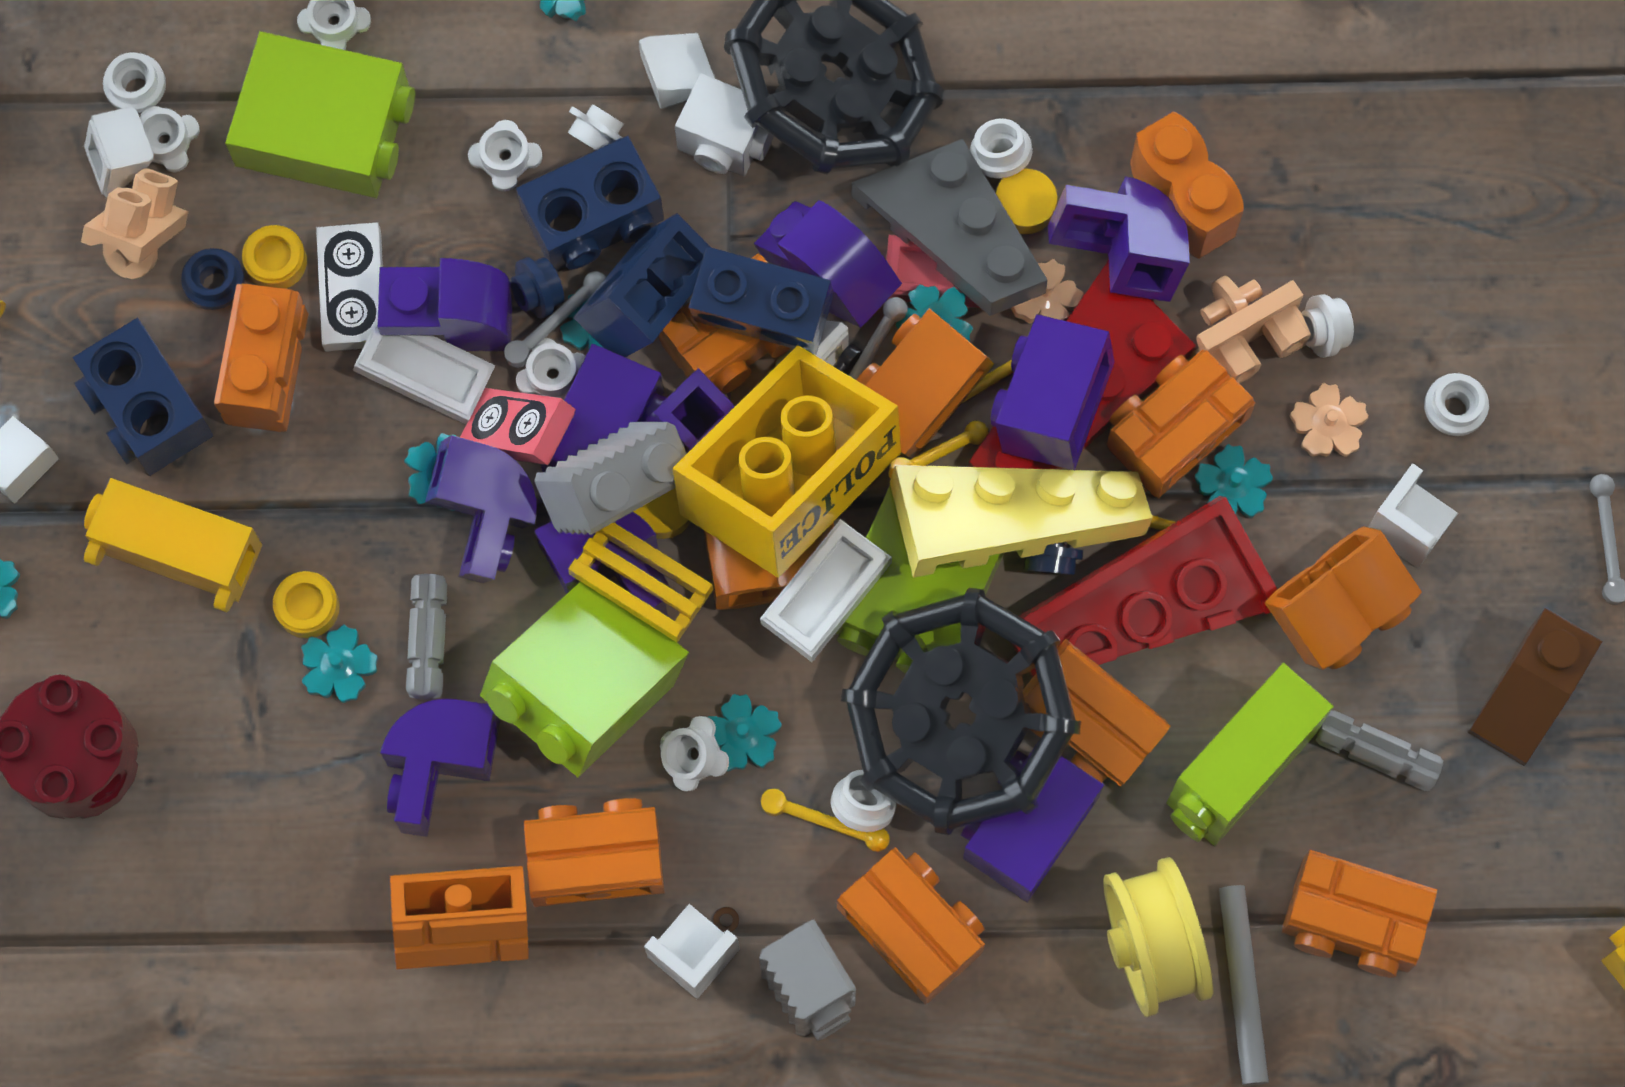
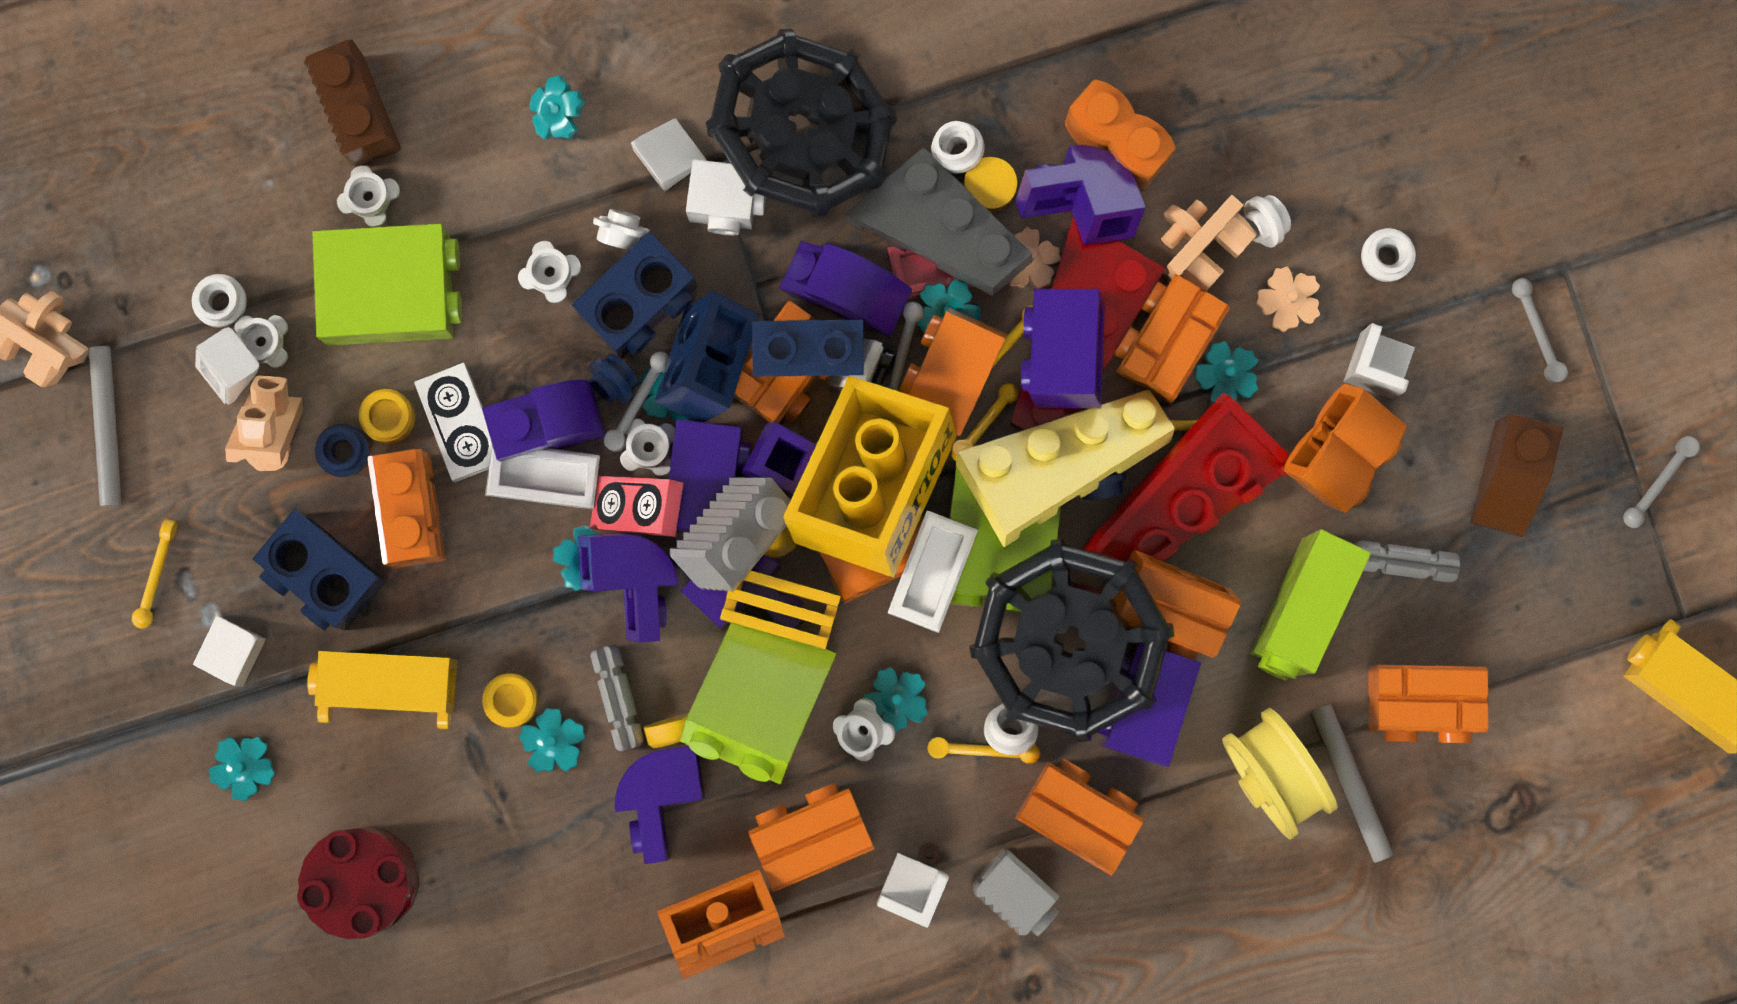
camera: 20 degrees left, 10 degrees up
(464, 686) = (665, 731): none -> yellow tile

